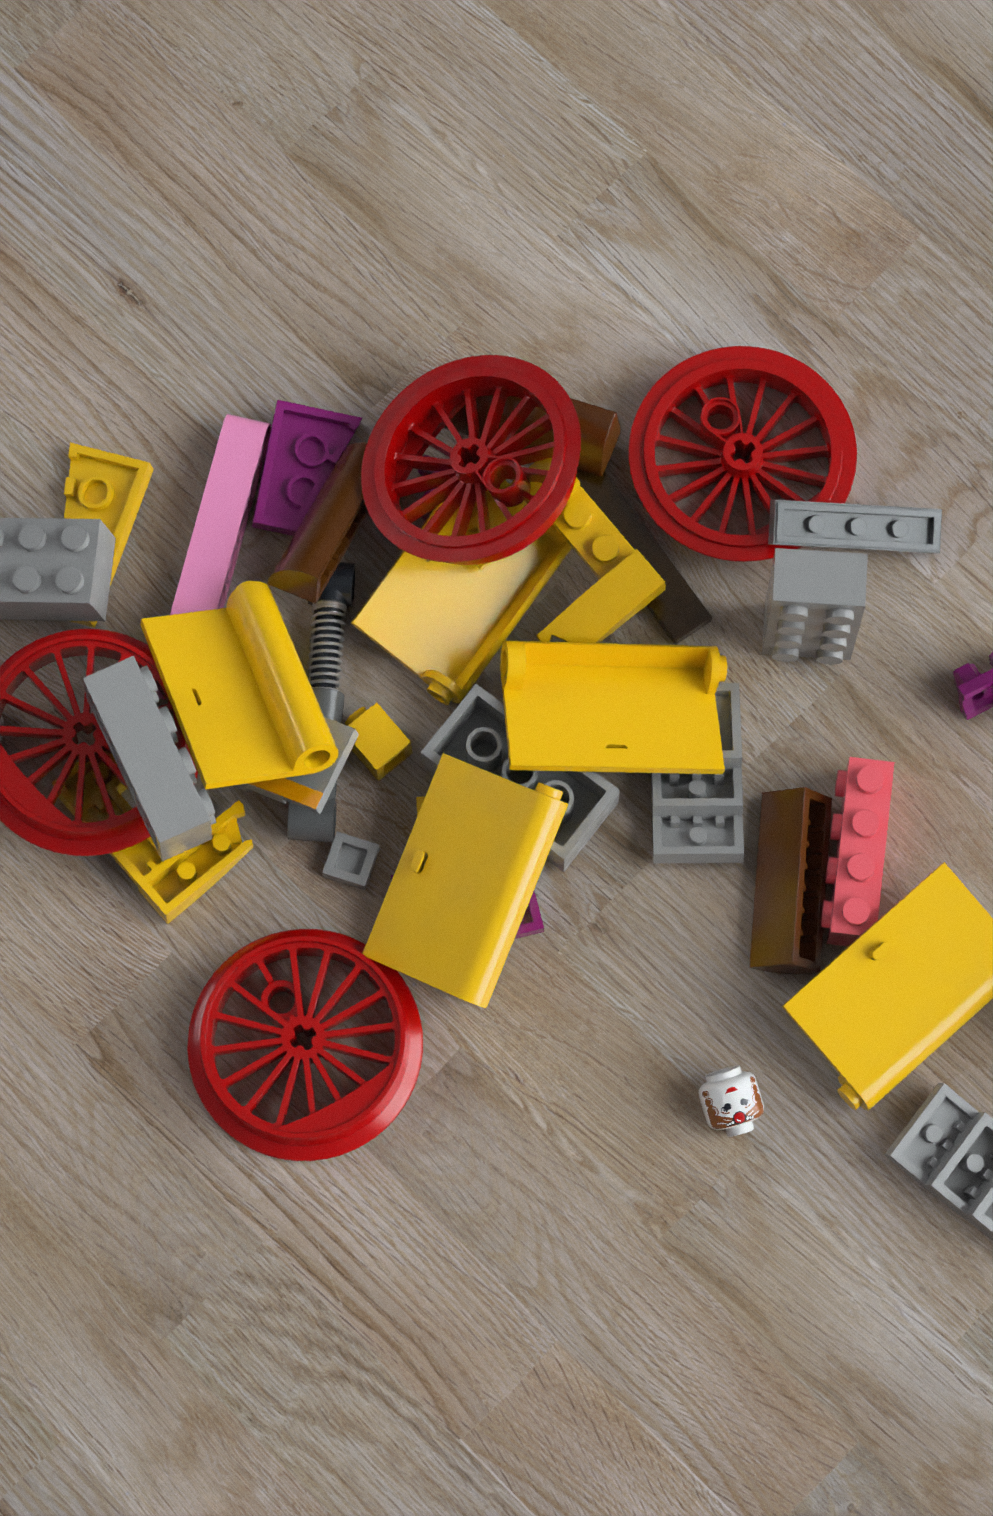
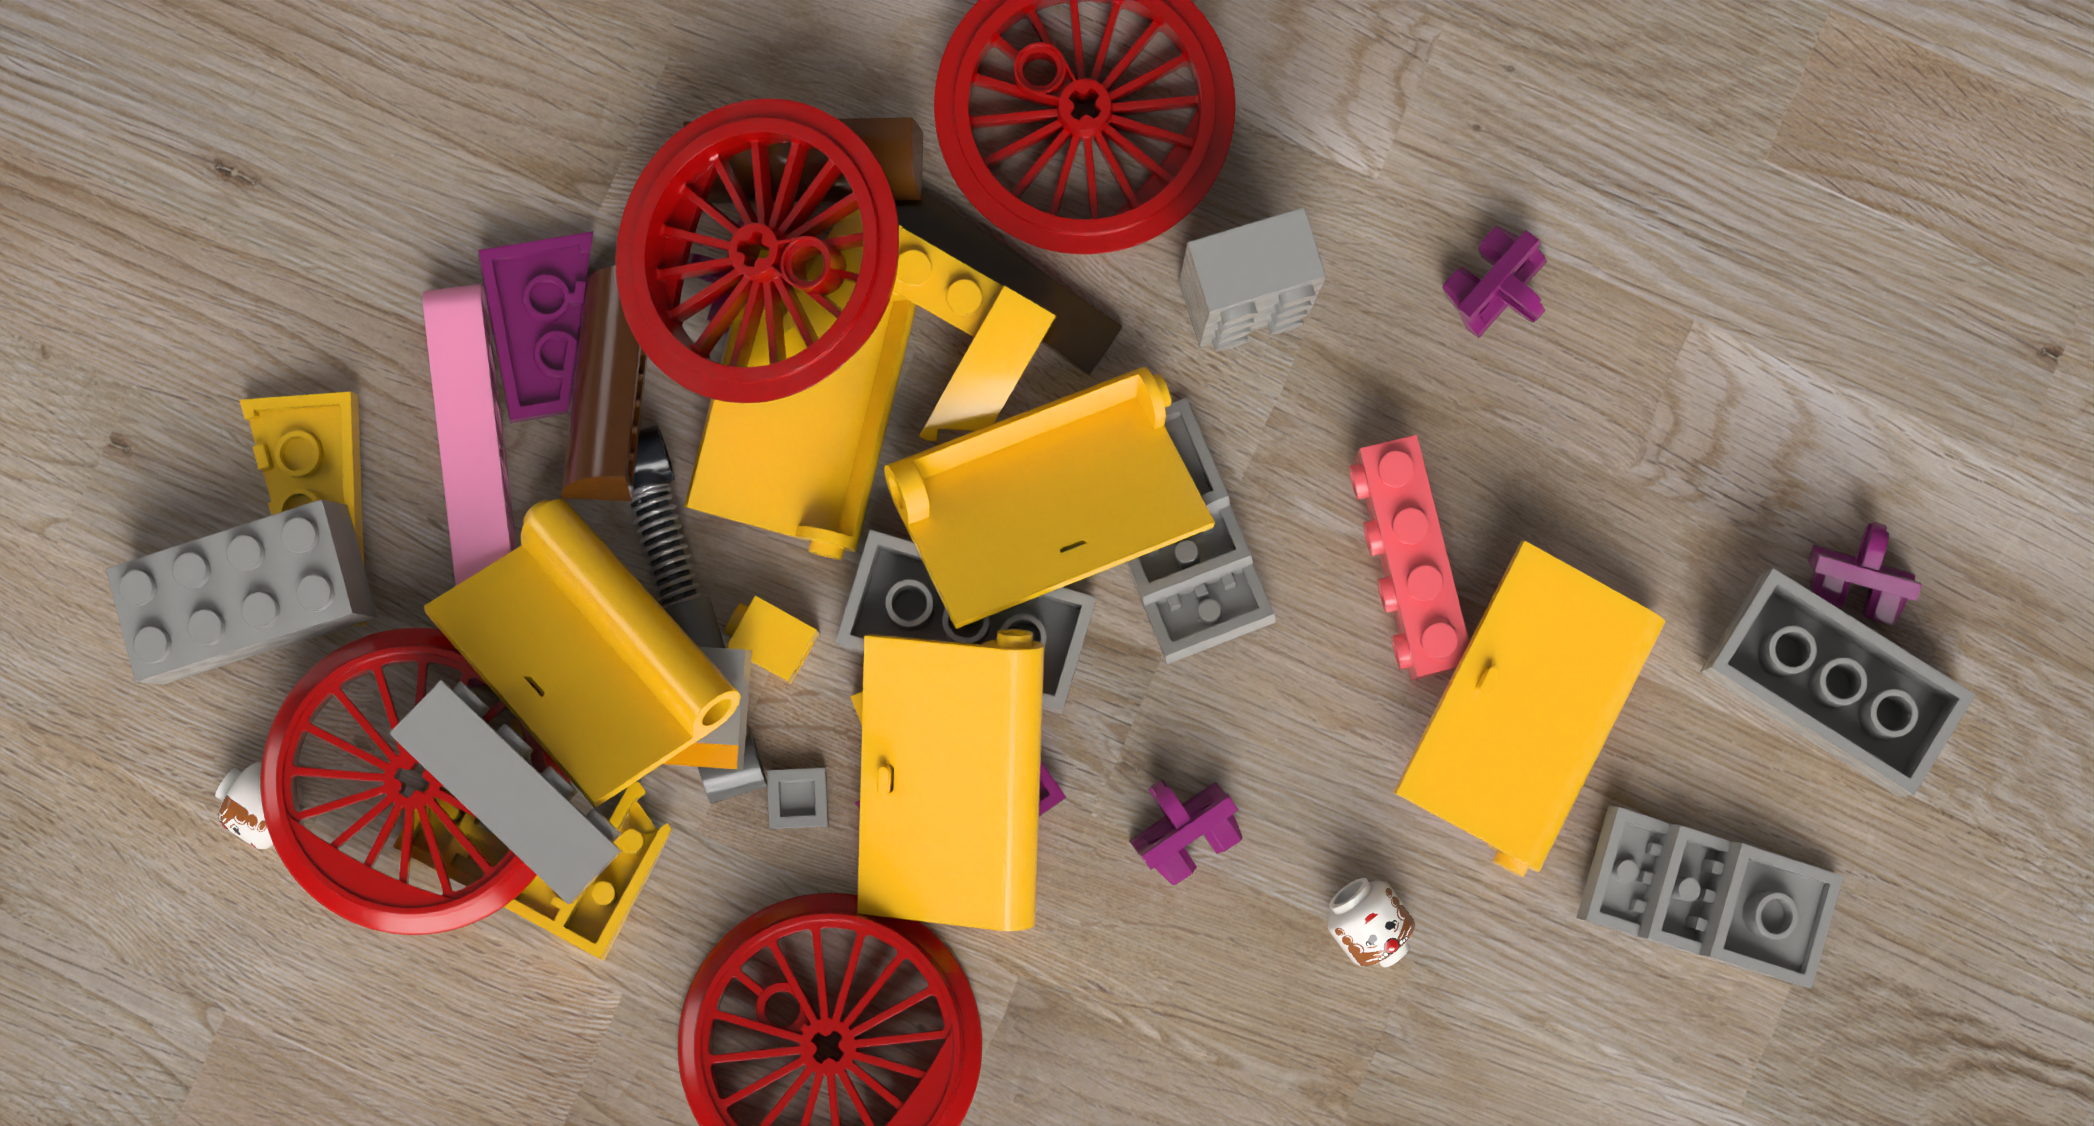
camera: 25 degrees left, 10 degrees up
(642, 979) = (1204, 814): none -> magenta hips
(790, 881) = (1341, 624): reddish brown brick -> none
(854, 526) = (1257, 149): tile -> none

